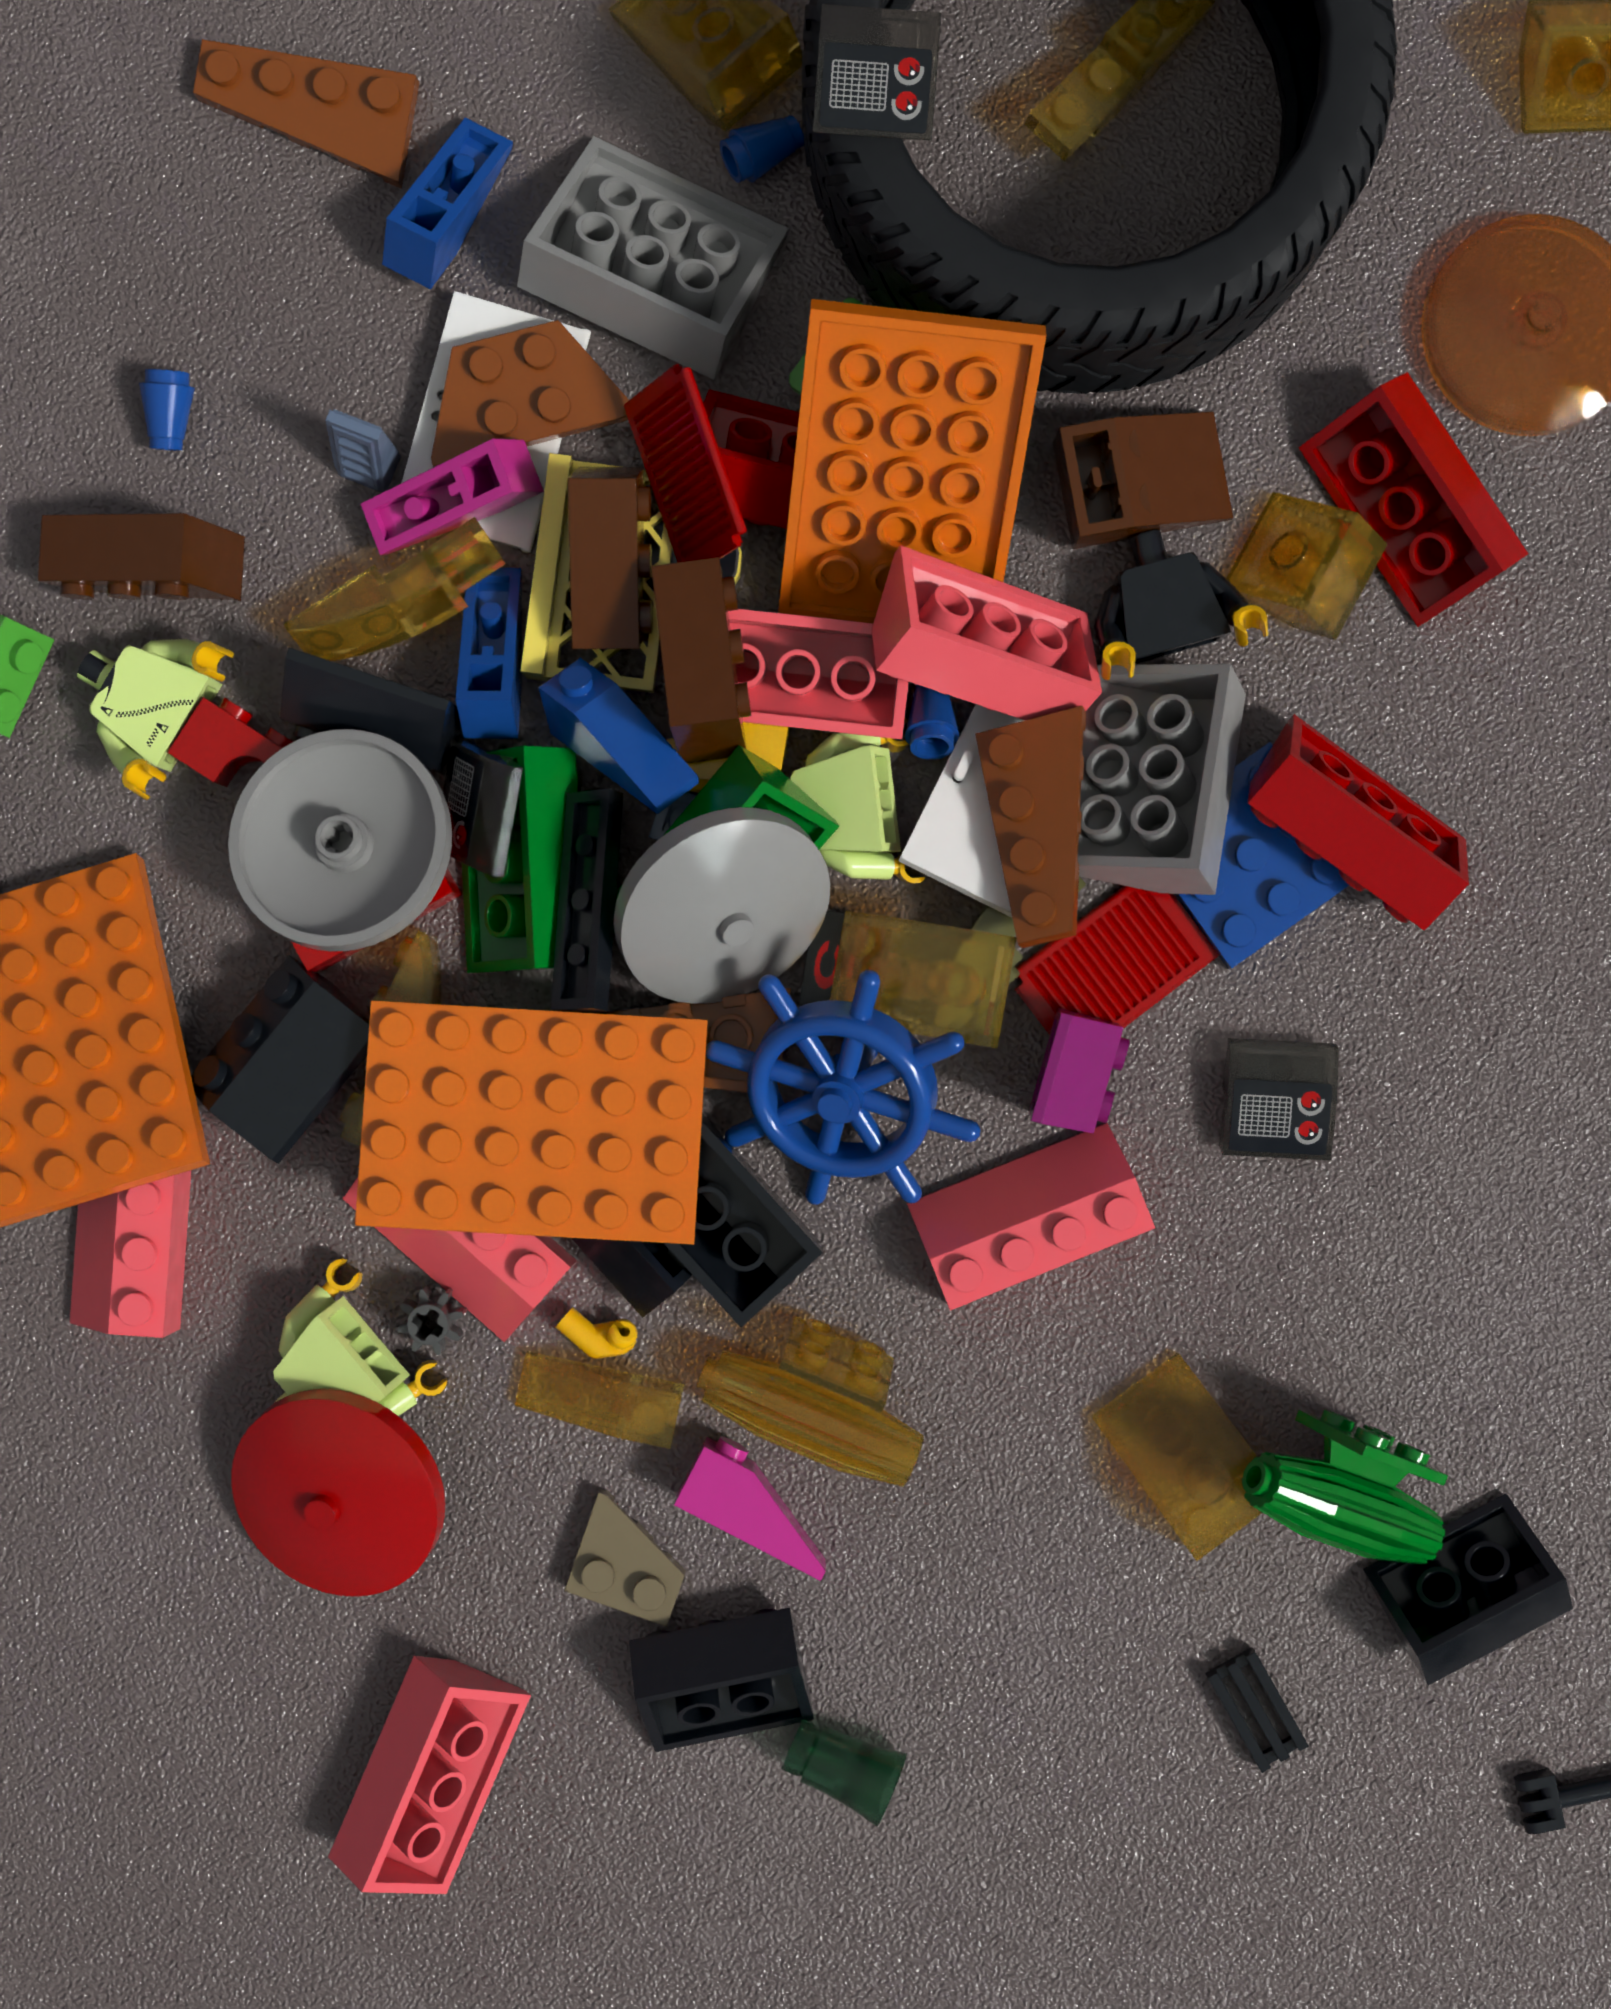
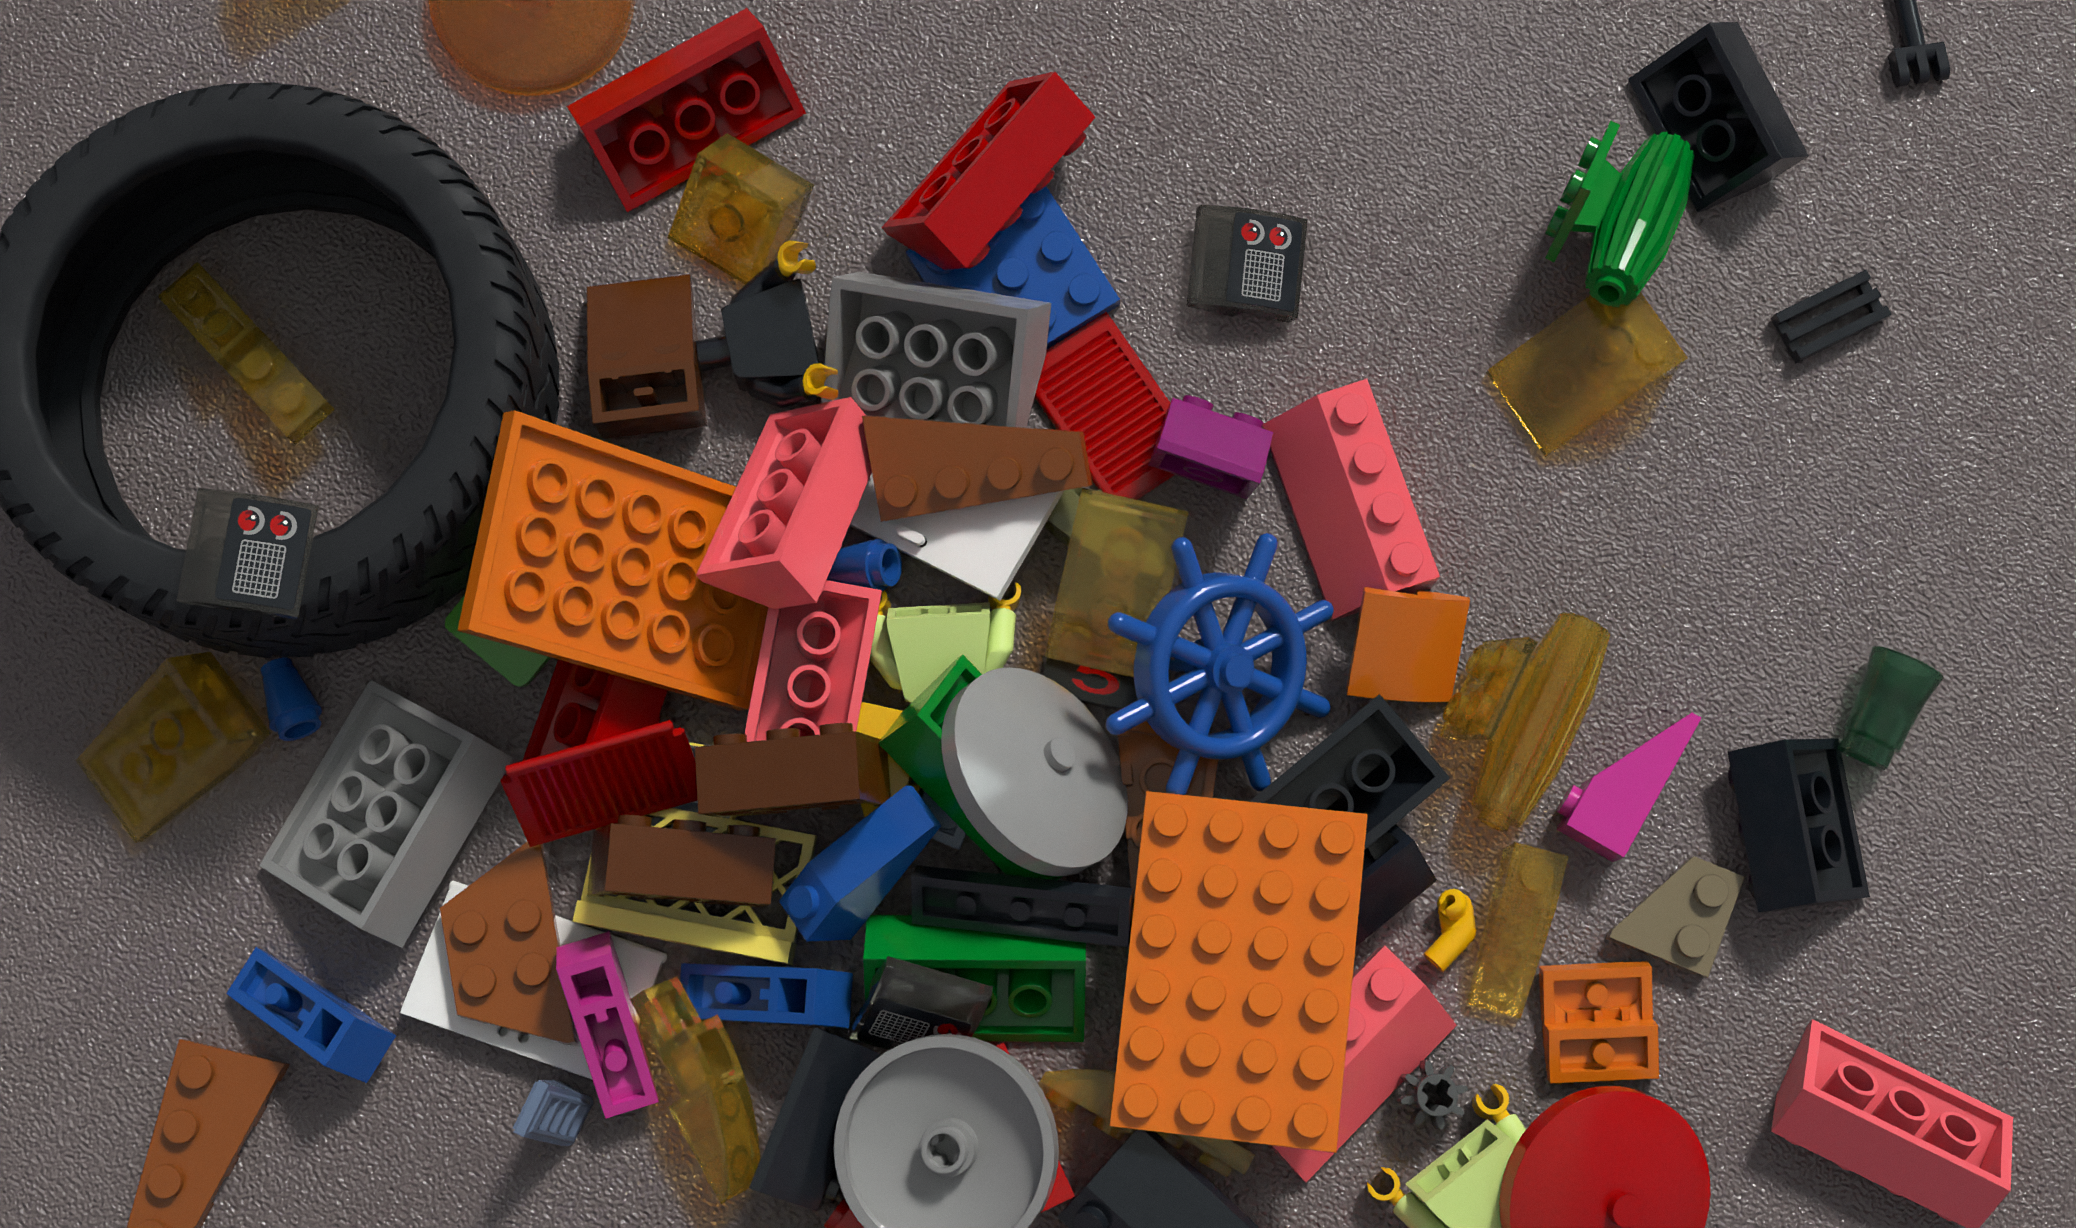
camera: 85 degrees left, 10 degrees down
(515, 1483) = (1598, 1022): none -> orange slope
(879, 1280) = (1407, 645): none -> orange slope

